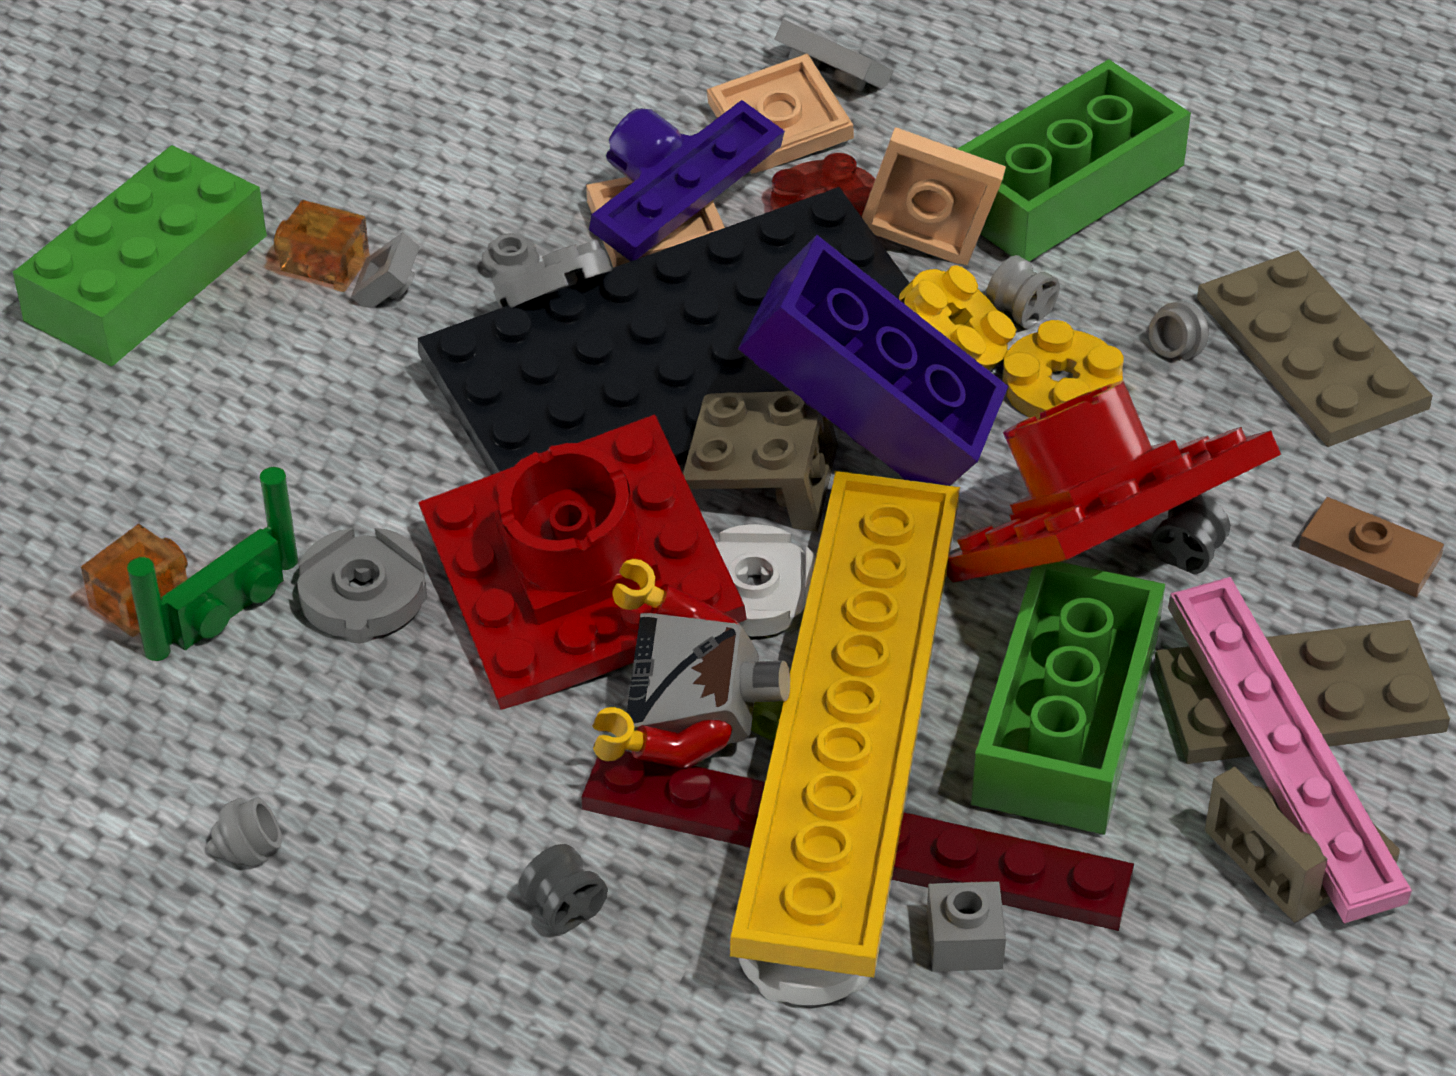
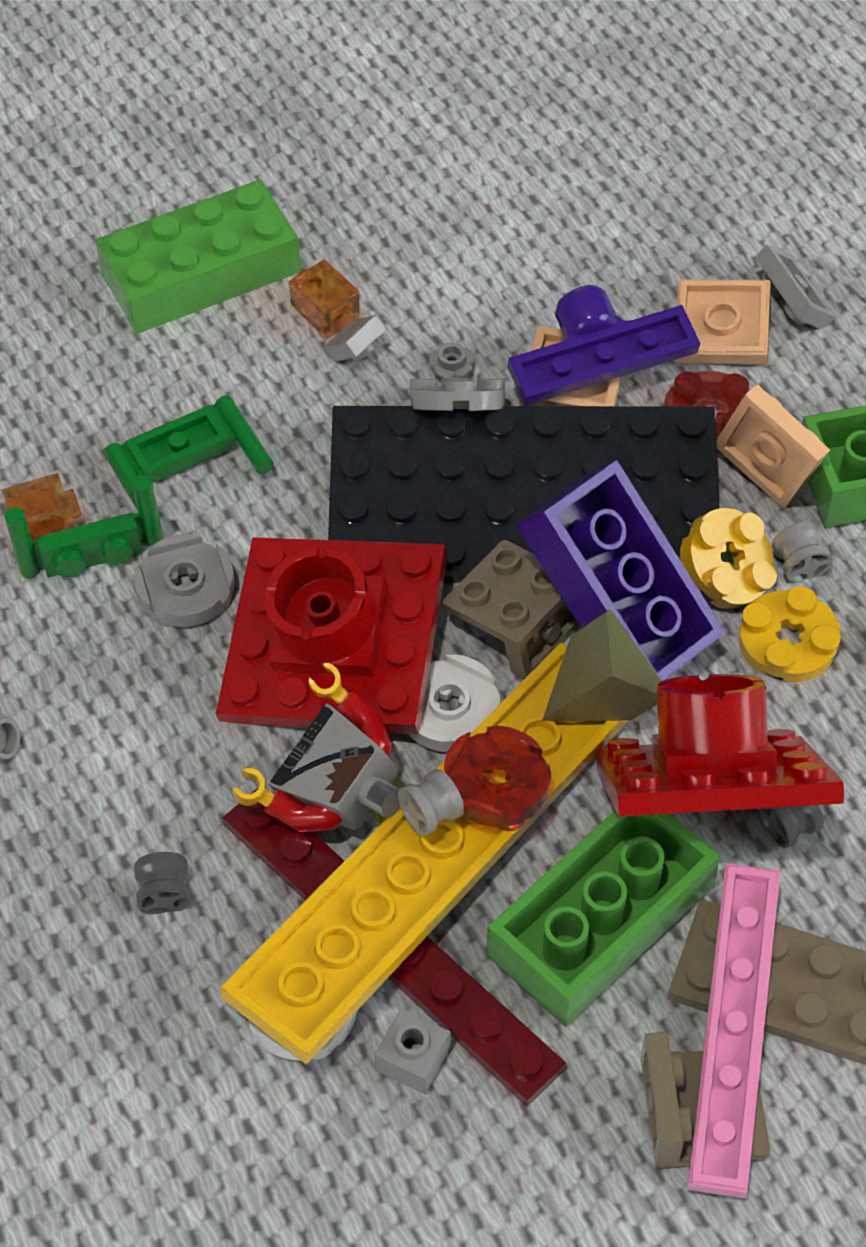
camera: 30 degrees right, 10 degrees up
(263, 438) = (185, 444): none -> green plate
(828, 659) = (430, 802): none -> light grey wheel
(897, 635) = (526, 774): none -> clear red plate
(919, 470) = (602, 676): none -> olive slope

